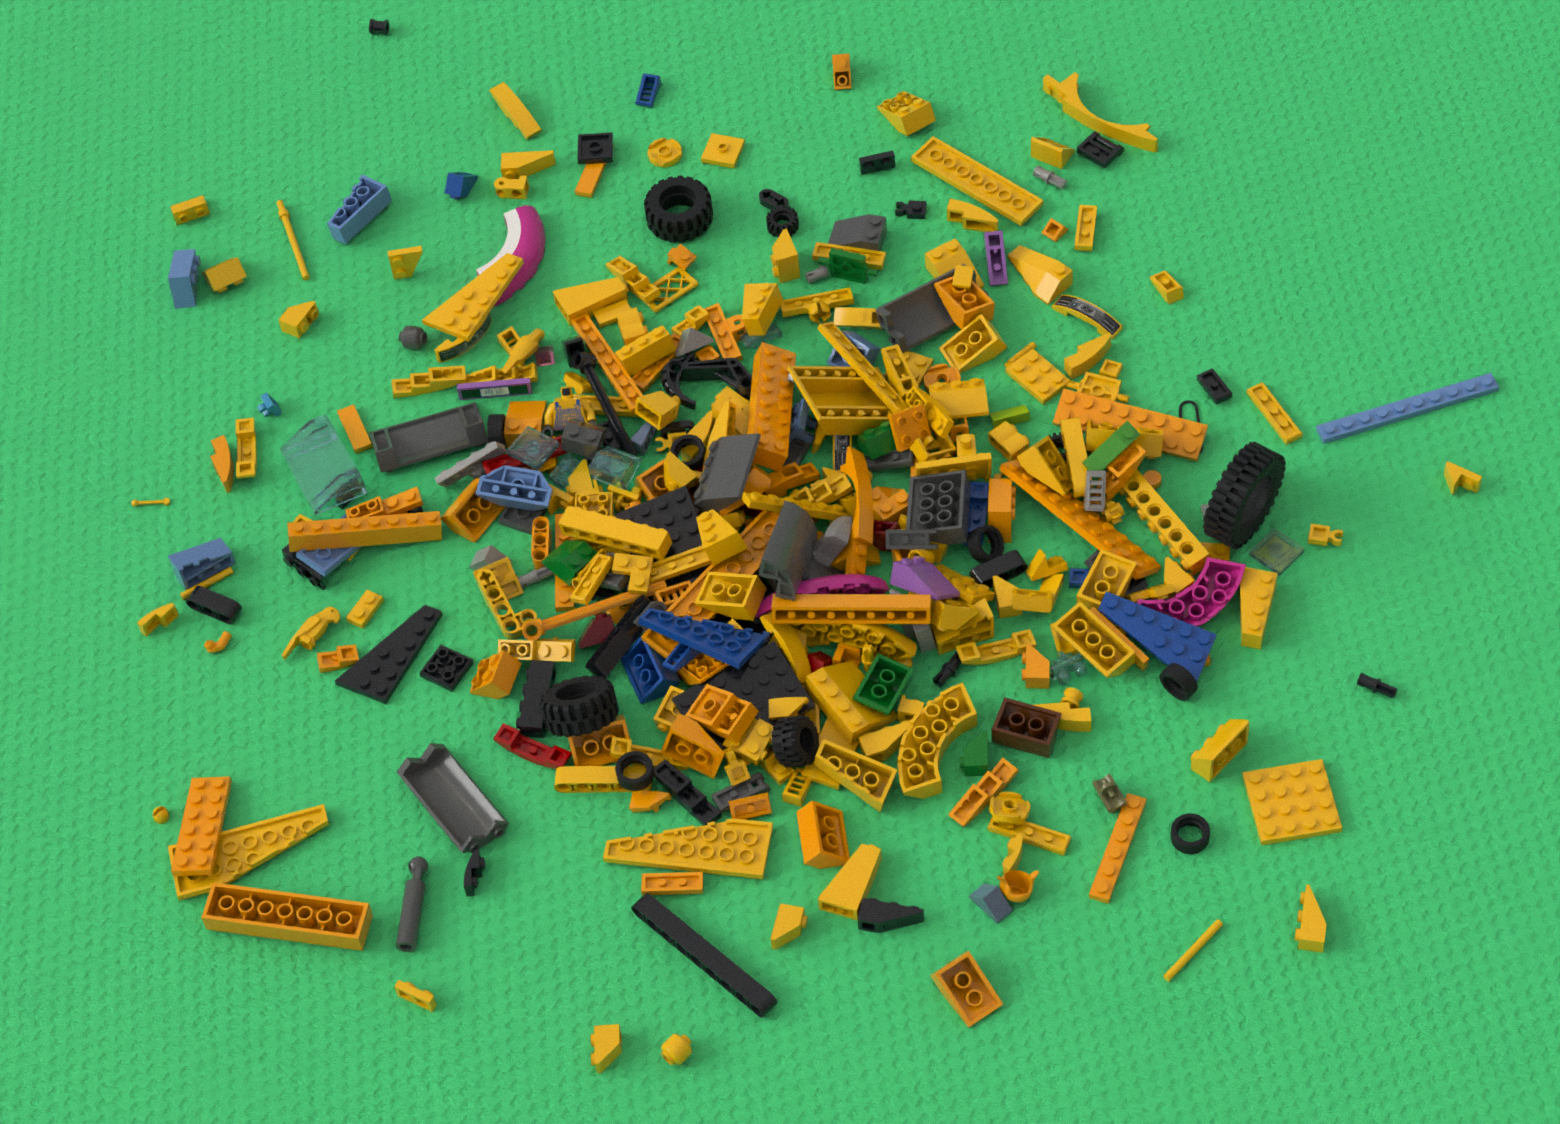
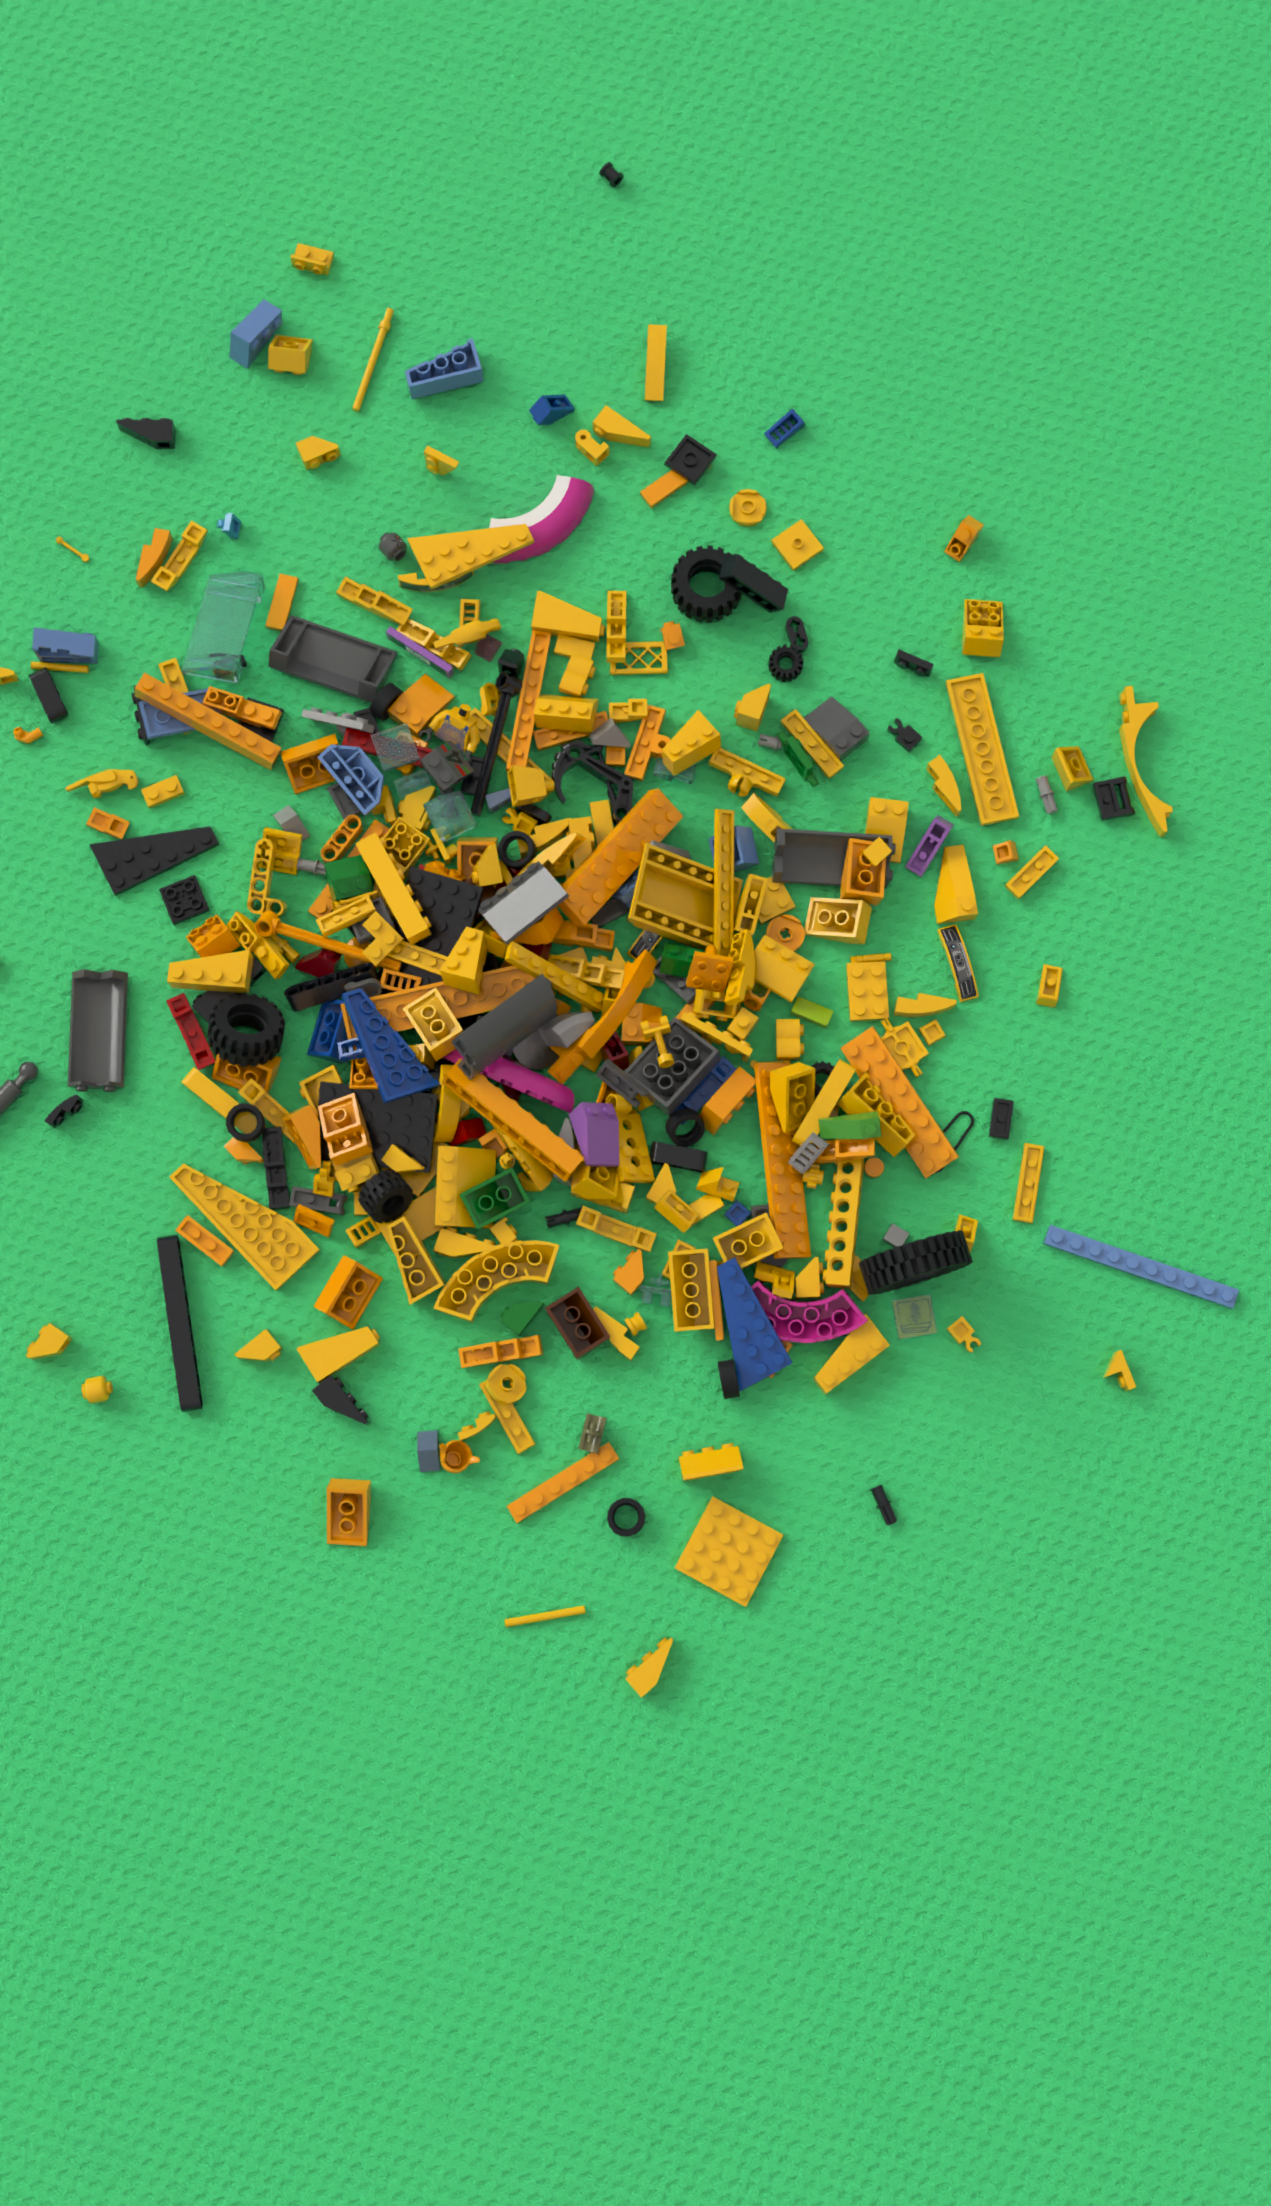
camera: 30 degrees right, 25 degrees up
(152, 388) = (155, 433): none -> black slope
(517, 687) = (213, 973): none -> yellow wedge
(715, 180) = (753, 583): none -> black brick
(930, 499) = (665, 1059): none -> yellow bar

